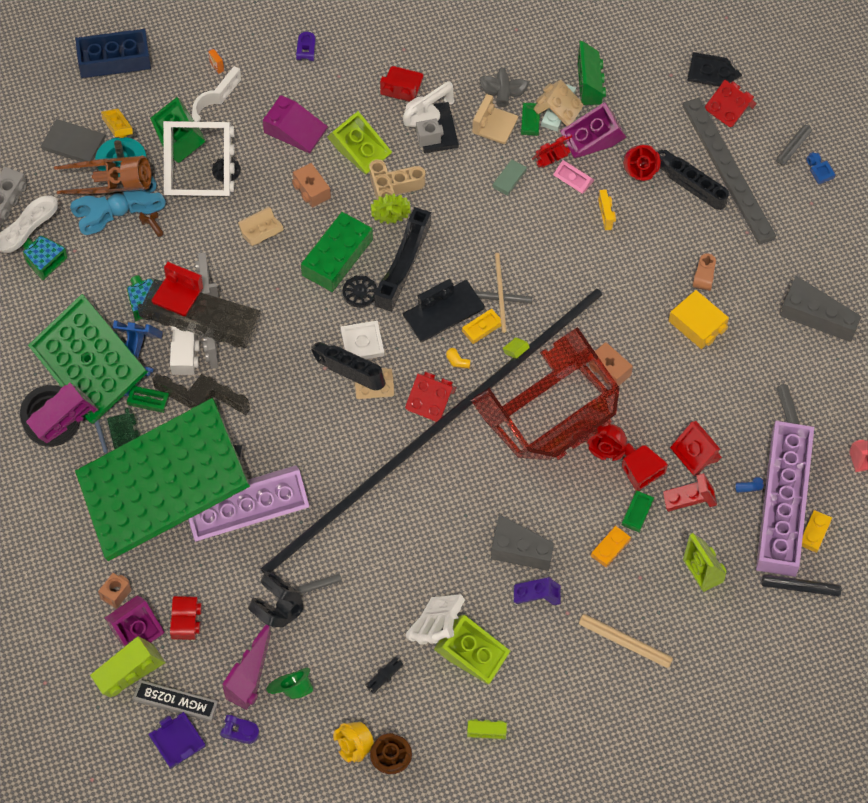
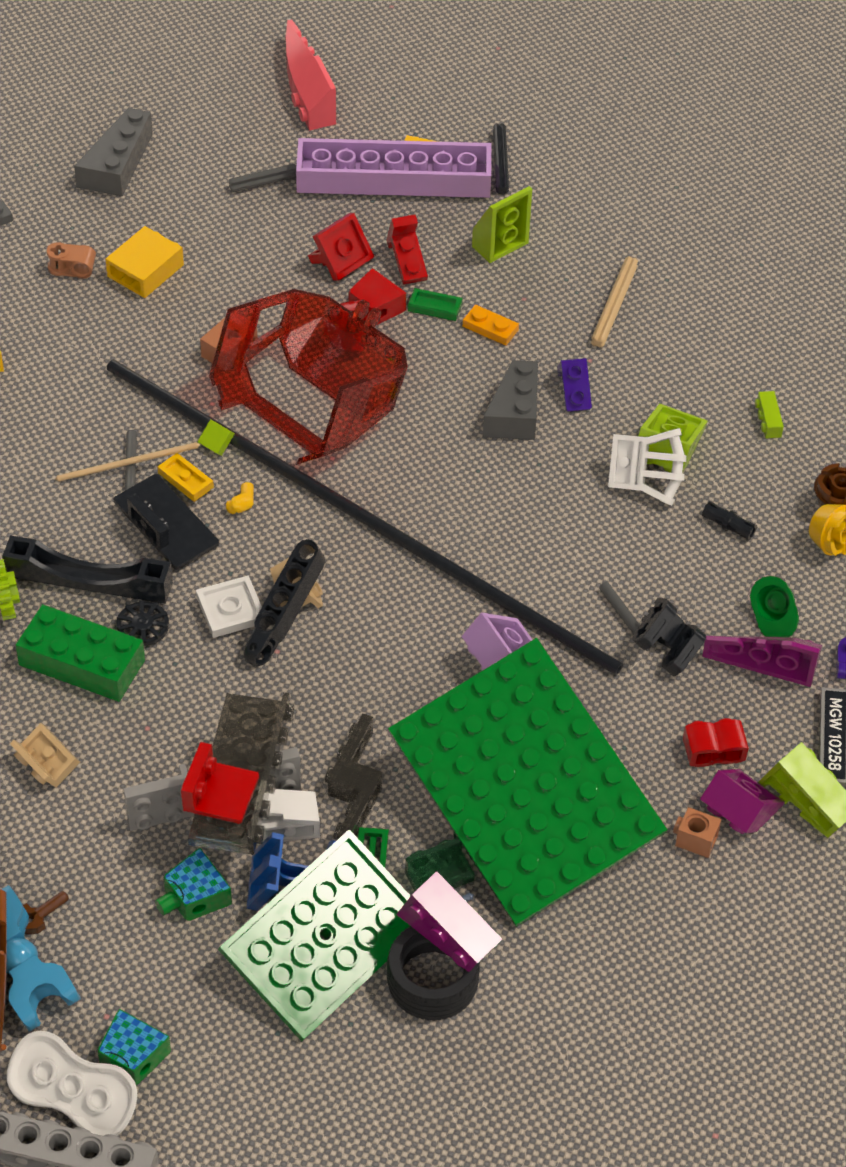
camera: 100 degrees left, 10 degrees down
(429, 396) = (308, 516): red bracket -> none
(756, 485) = (380, 203): blue arm -> none

